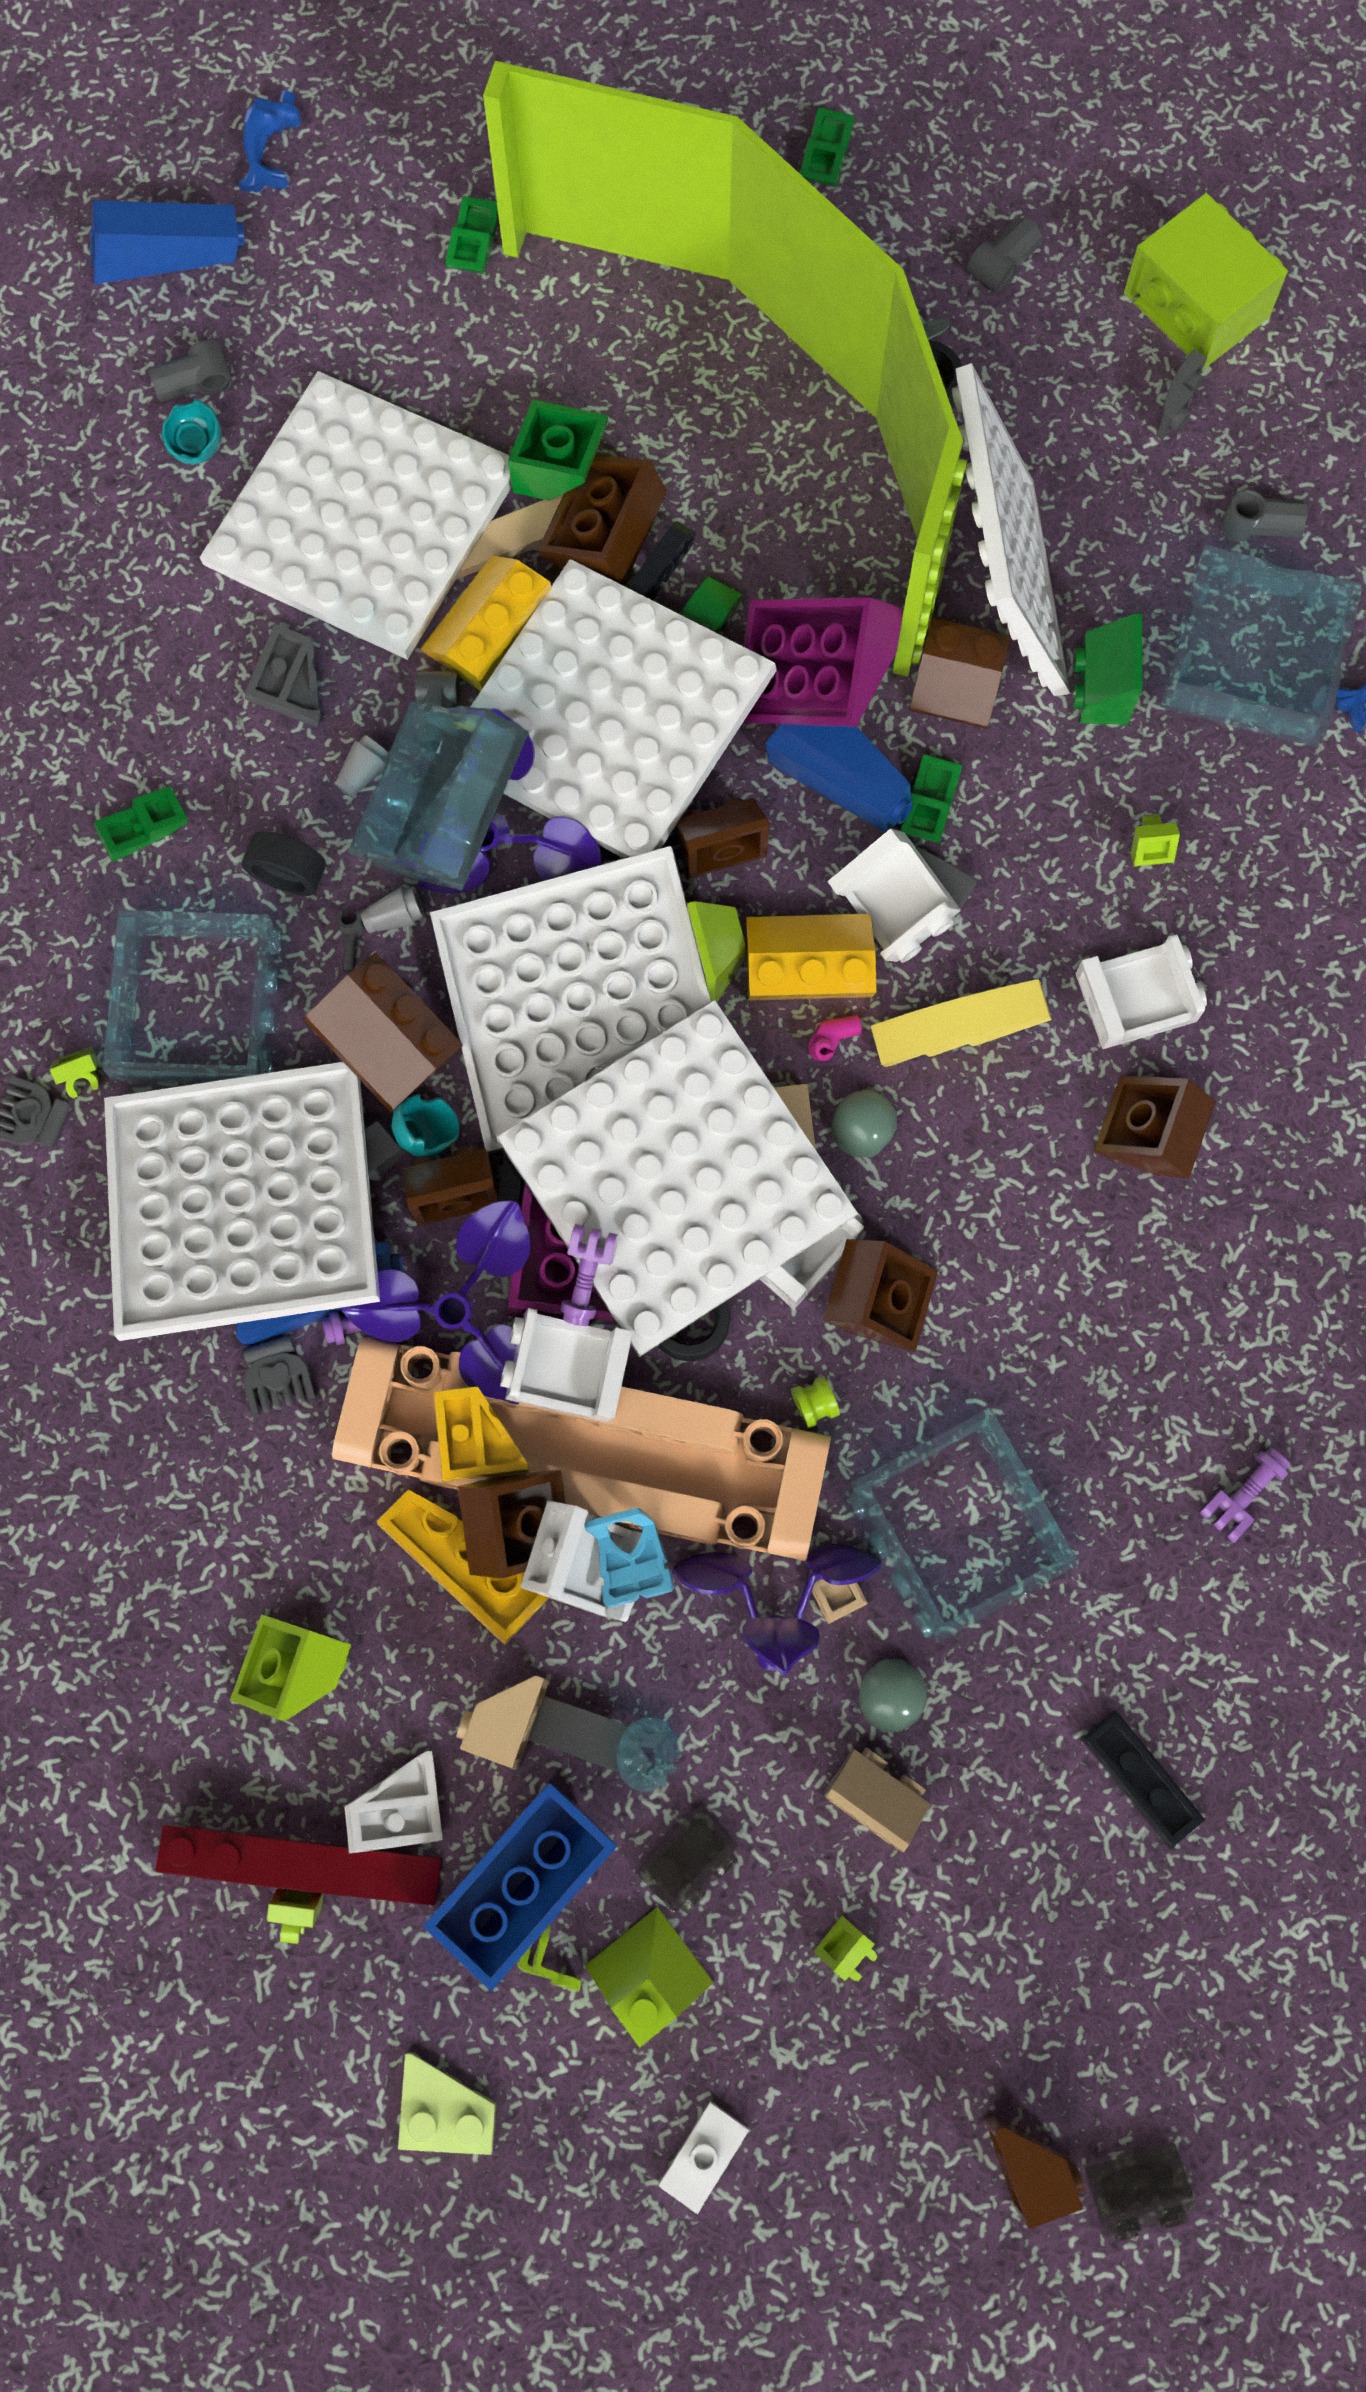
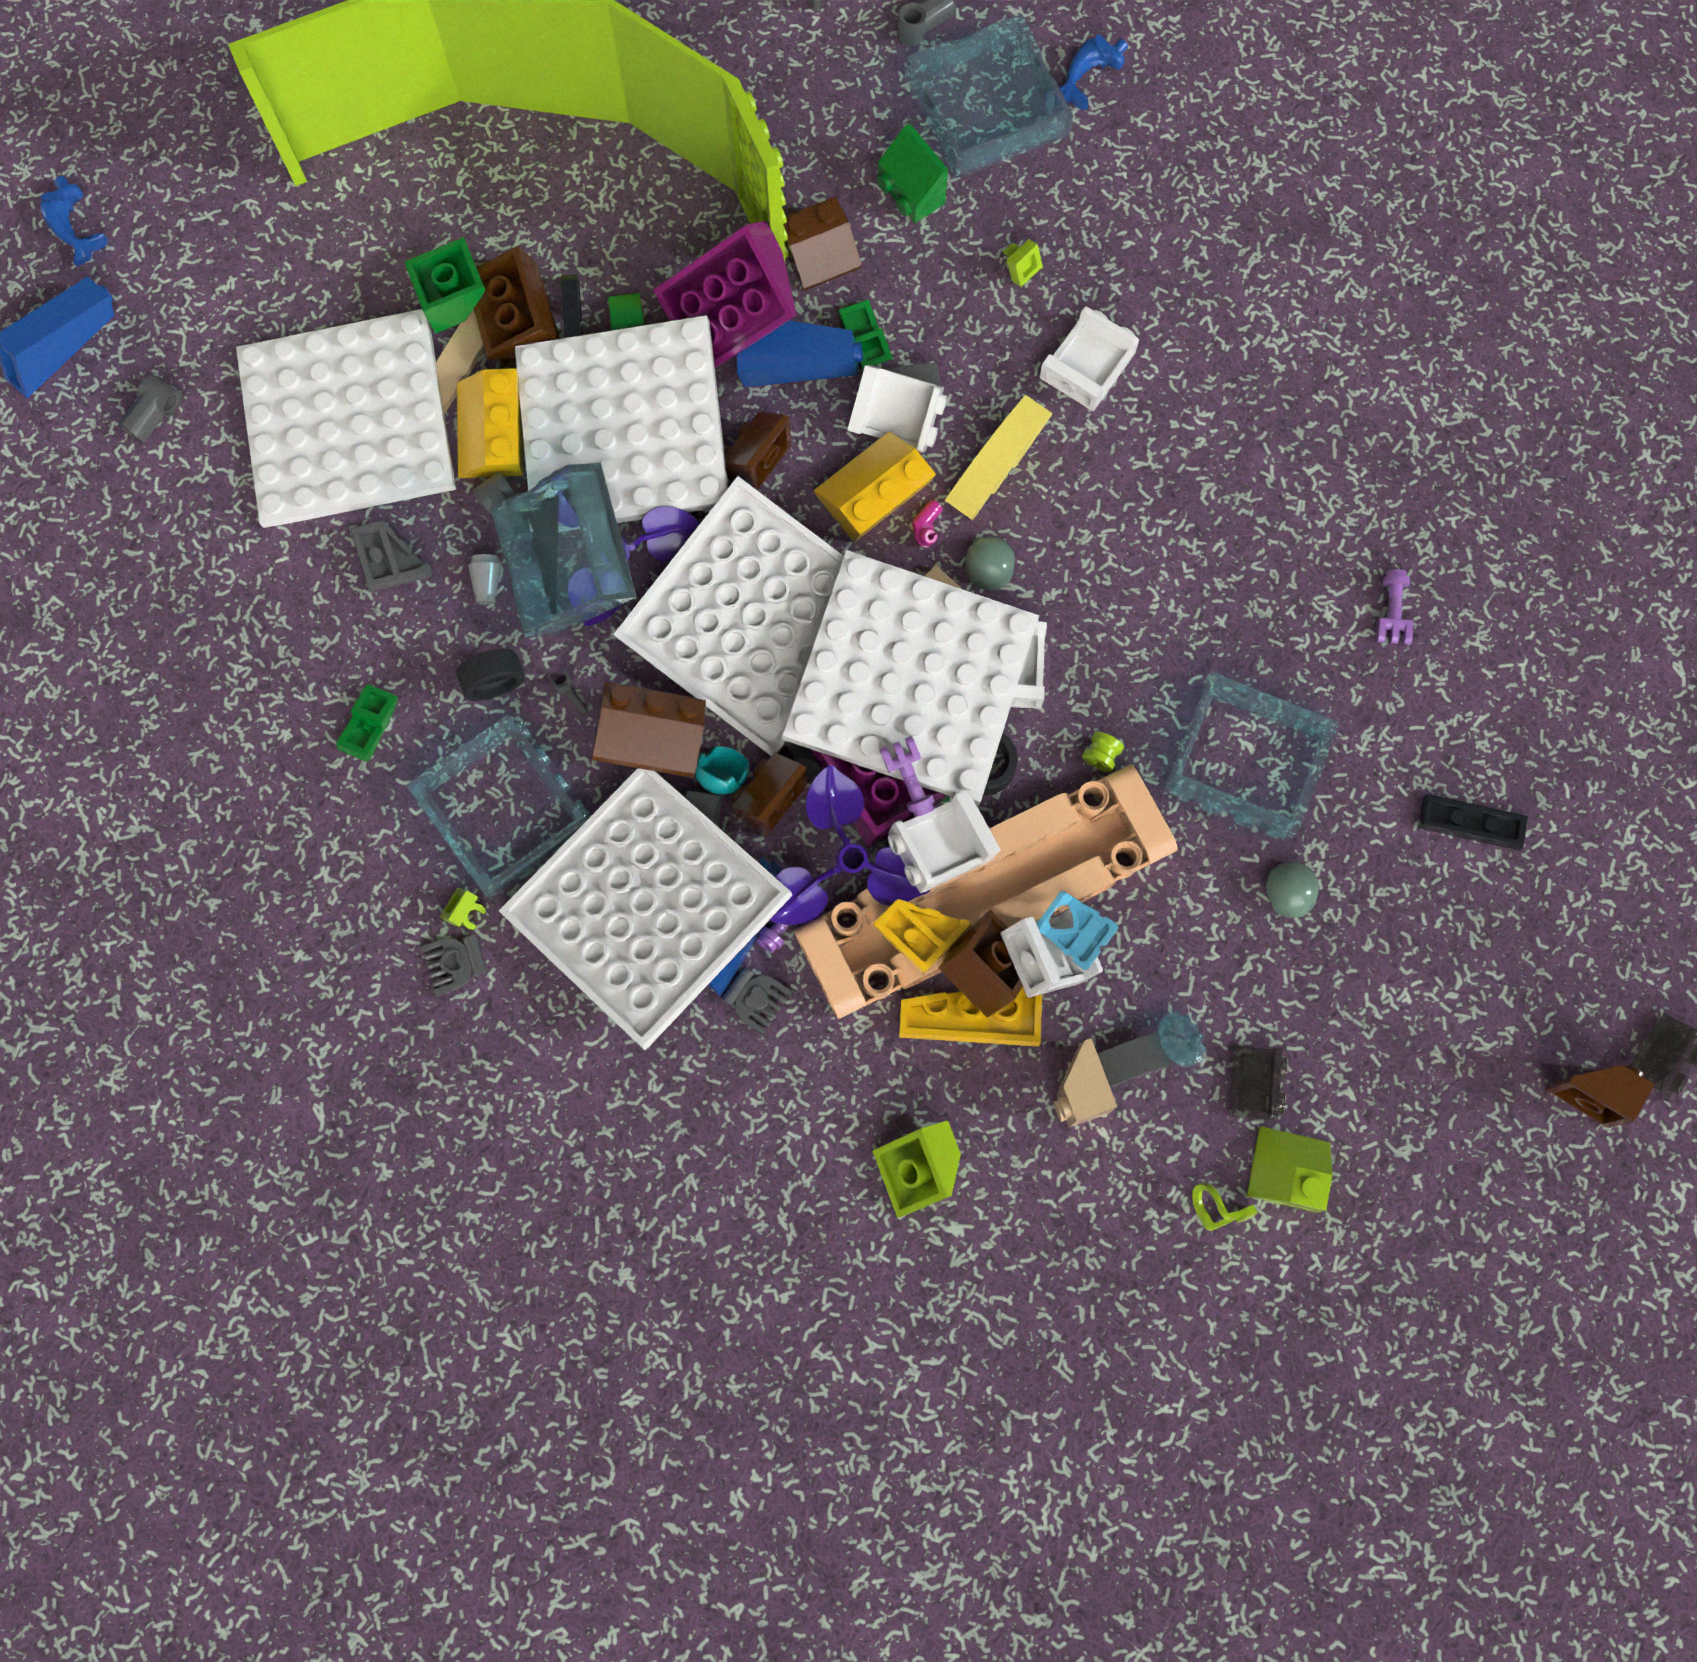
camera: 40 degrees left, 0 degrees up
(192, 433) = (185, 445): teal hair -> none
(294, 1911) = (1048, 1307): lime tile -> none
(297, 1864) = (1027, 1279): dark red slope -> none
(394, 911) = (585, 653): light grey cone -> none
(396, 1810) = (1059, 1195): white wing -> none
(443, 2112) = (1238, 1352): yellowish green wing -> none
(473, 235) = (265, 186): green slope -> none
(520, 1885) = (1173, 1176): blue slope -> none
(703, 2157) = (1409, 1247): white plate -> none
(718, 943) = (812, 514): lime slope -> none
(777, 1639) = (1201, 907): dark purple plant -> none
(837, 1600) = (1210, 856): tan tile -> none
(844, 1949) = (1390, 1057): lime tile -> none
(877, 1799) = (1337, 955): tan slope -> none
(880, 1294) = (1086, 657): reddish brown slope -> none
(1011, 532) = (798, 130): white plate -> none
(1156, 1124) = (1164, 431): reddish brown slope -> none

